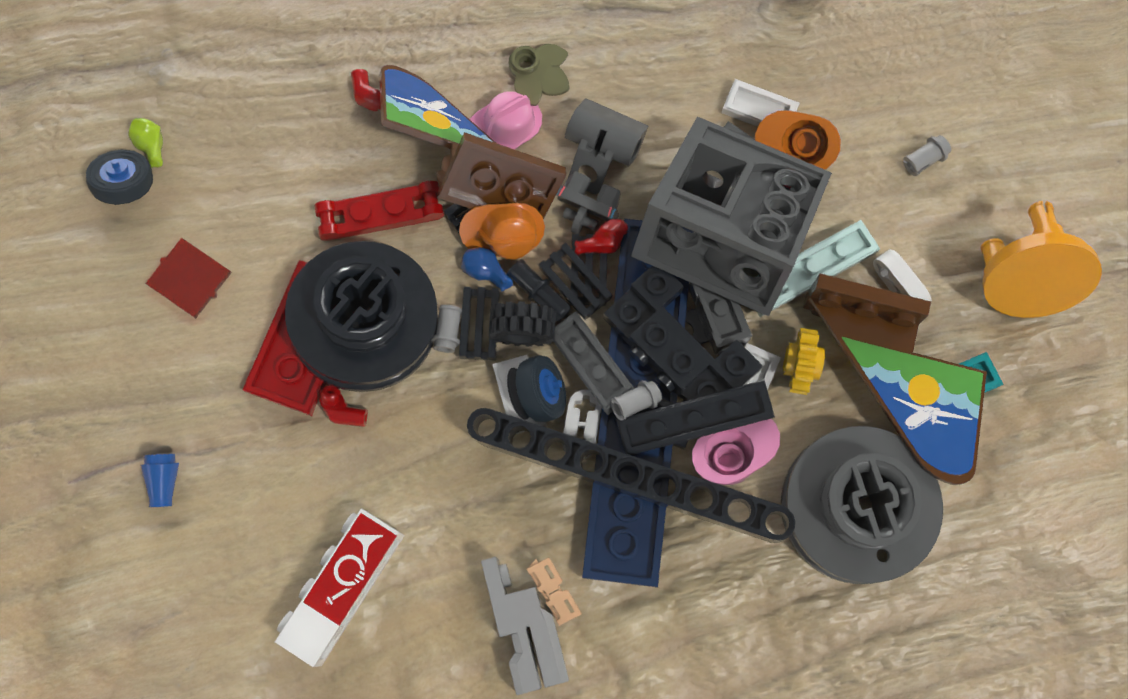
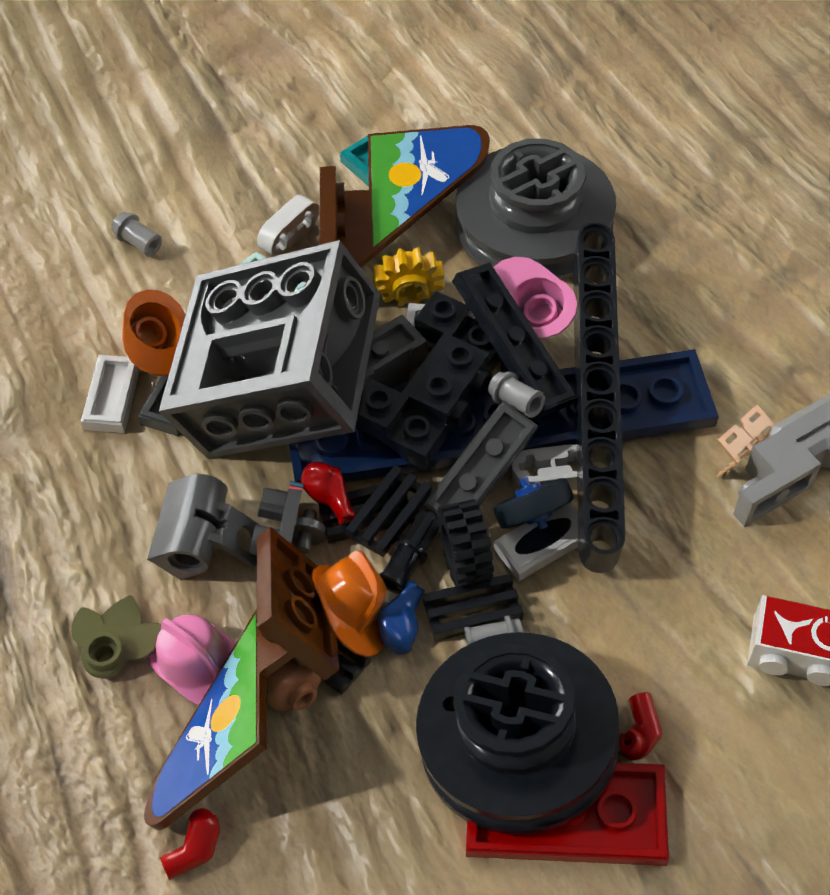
camera: 110 degrees left, 20 degrees down
(379, 211) = (364, 773): red plate -> none
(1039, 271) = (243, 98): light orange piece -> none

